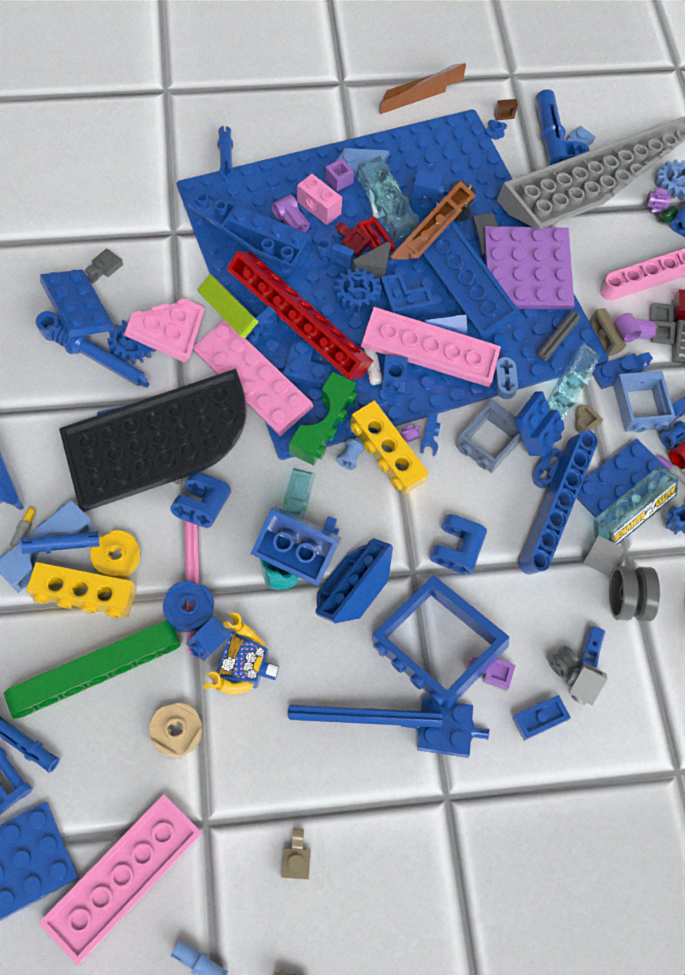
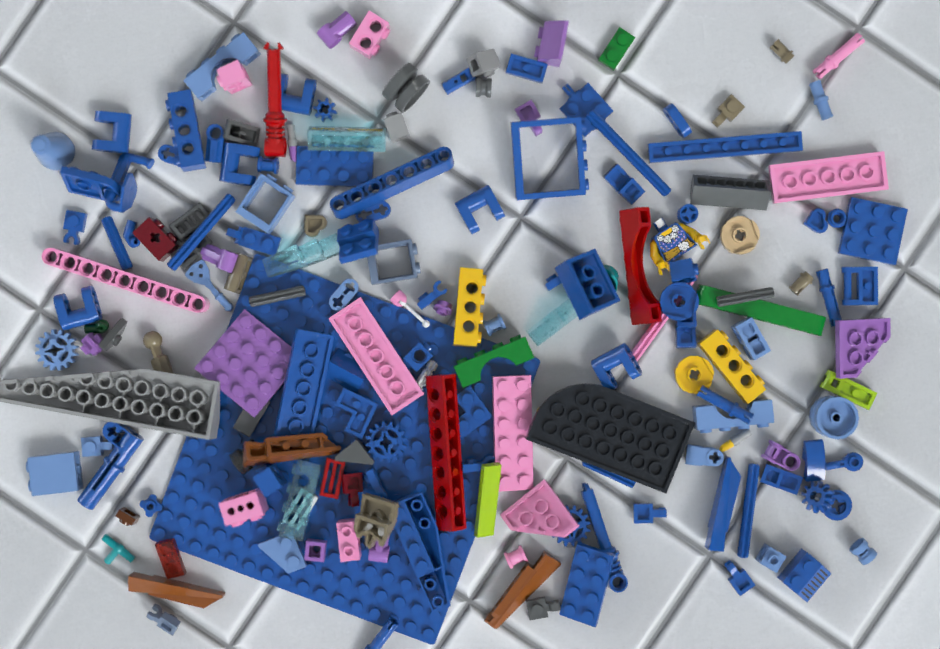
camera: 135 degrees left, 25 degrees up
(48, 486) = (699, 456): none -> medium blue piece
(65, 399) = (644, 512): none -> blue plate
(67, 733) = (801, 283): none -> dark tan pin
(70, 835) = (842, 218): none -> blue plate
(81, 628) = (750, 338): none -> medium blue brick
(99, 817) = (816, 221): none -> blue tile
(120, 662) = (745, 296): none -> dark grey axle
(134, 271) = (522, 587): none -> dark orange wedge
(154, 589) = (686, 332): none -> blue slope
(161, 285) = (515, 557): none -> bright pink bush
(222, 767) = (730, 192): none -> dark grey brick
(248, 701) = (689, 211): none -> blue wheel
(264, 814) = (725, 147): none -> blue plate
(290, 640) = (634, 228): none -> red arch
(312, 217) = (375, 519): none -> dark tan plate
(341, 684) = (624, 184): none -> blue slope
(343, 796) = (677, 120): none -> blue beam
(355, 582) = (568, 236): blue wedge -> none
(403, 65) = (165, 621): none -> sand blue plate
(429, 155) = (243, 506): none -> bright pink piece
(445, 104) = (170, 558): none -> clear red plate
(454, 412) = (400, 300): none -> hinge
(472, 821) = (616, 48): none -> green plate
(489, 87) = (117, 548): none -> teal piece
(541, 763) = (552, 42): none -> medium lavender slope
(587, 101) = (54, 473): none -> medium blue brick
(597, 225) = (160, 362): none -> dark tan piece
(622, 309) = (205, 280): none -> medium blue piece
(649, 214) = (114, 335): none -> dark grey plate
(670, 338) = (201, 232): none -> blue axle

